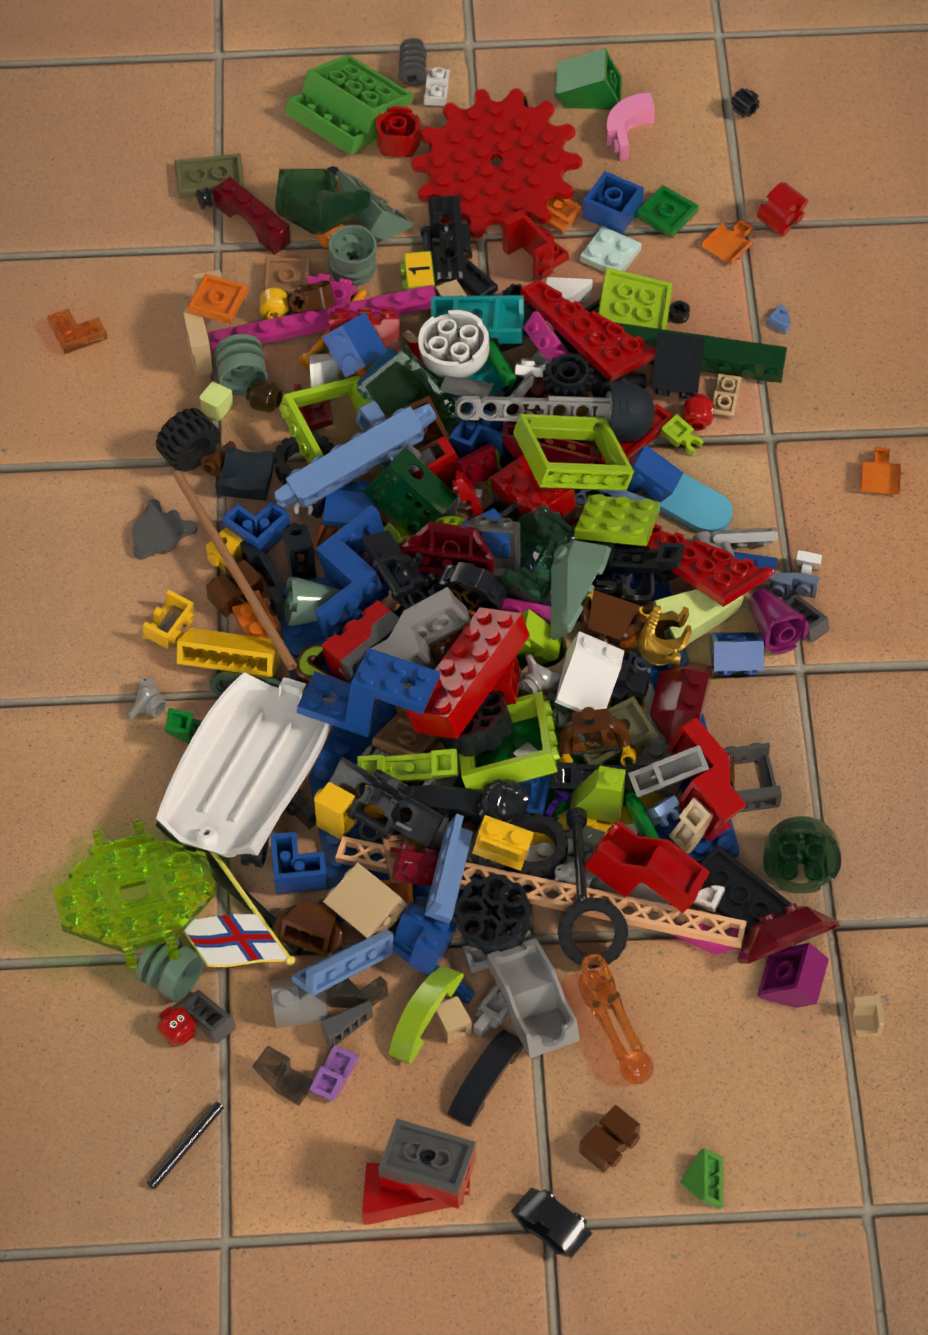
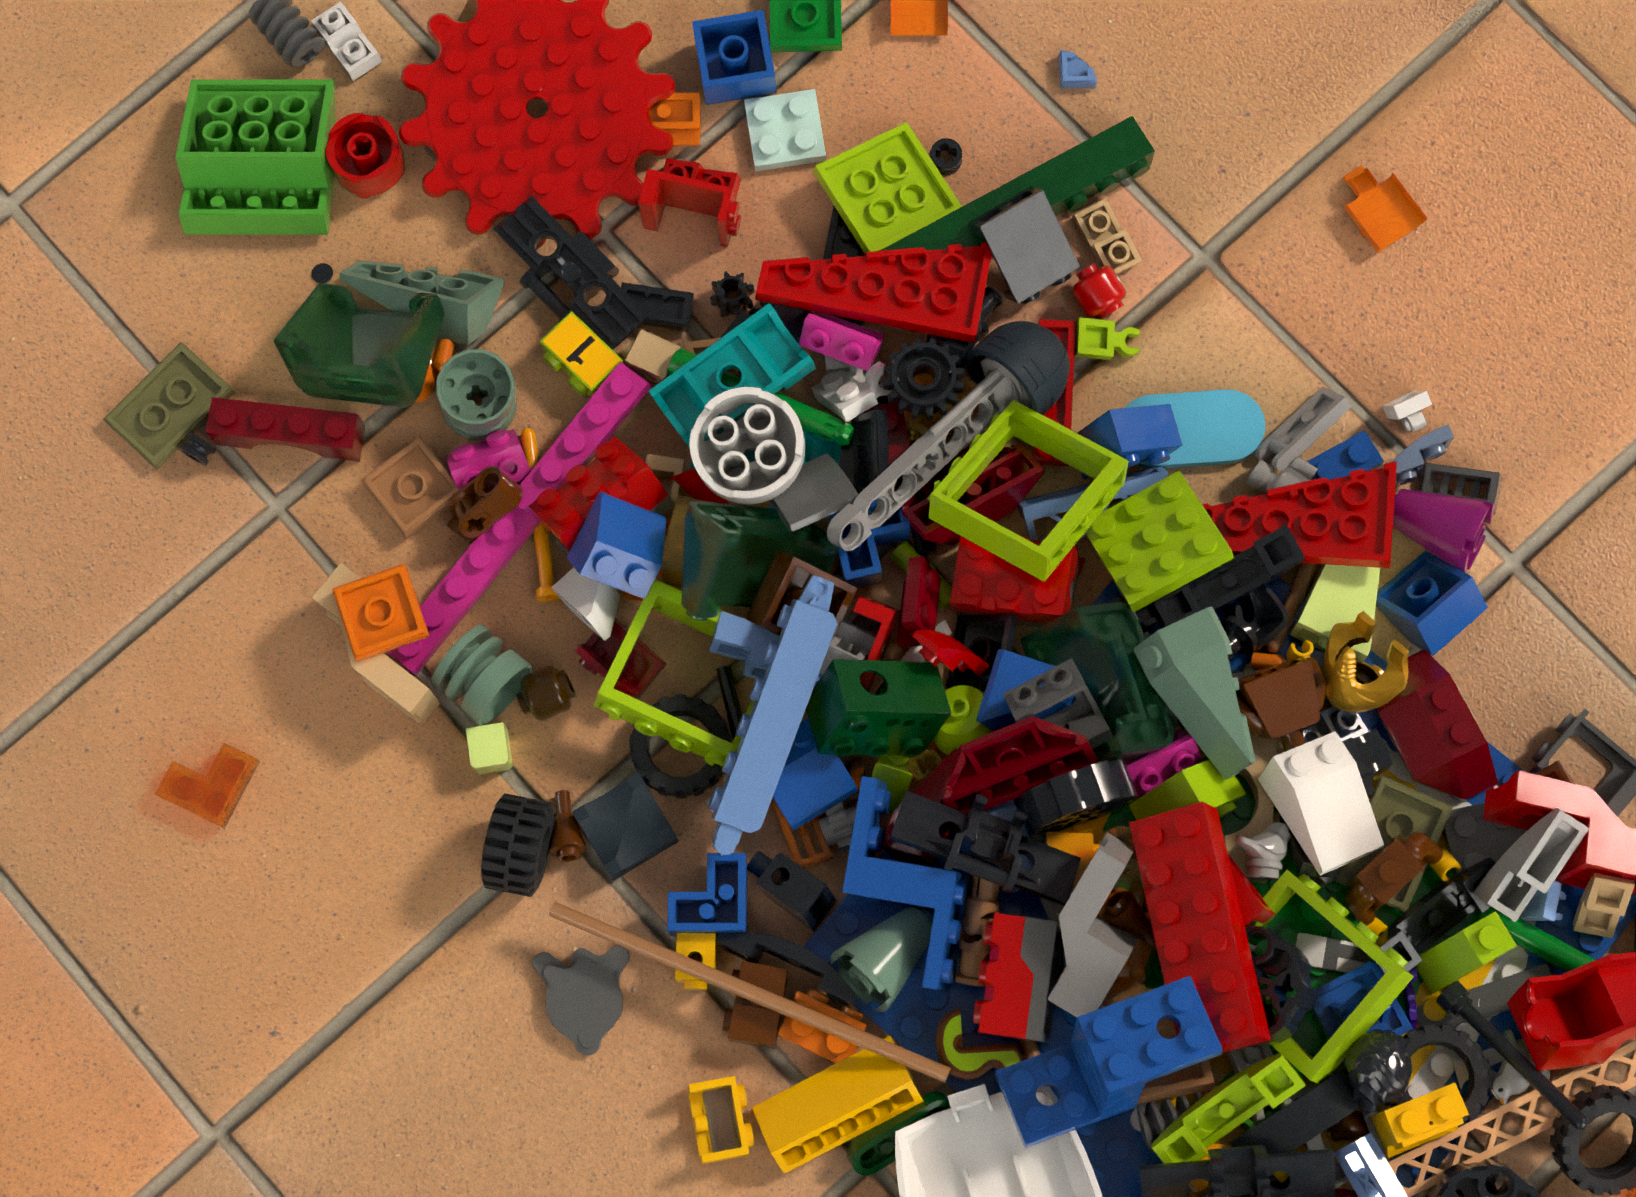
camera: 35 degrees left, 20 degrees up
(273, 303) = (435, 544): yellow head -> none
(572, 288) = (789, 235): white slope -> none

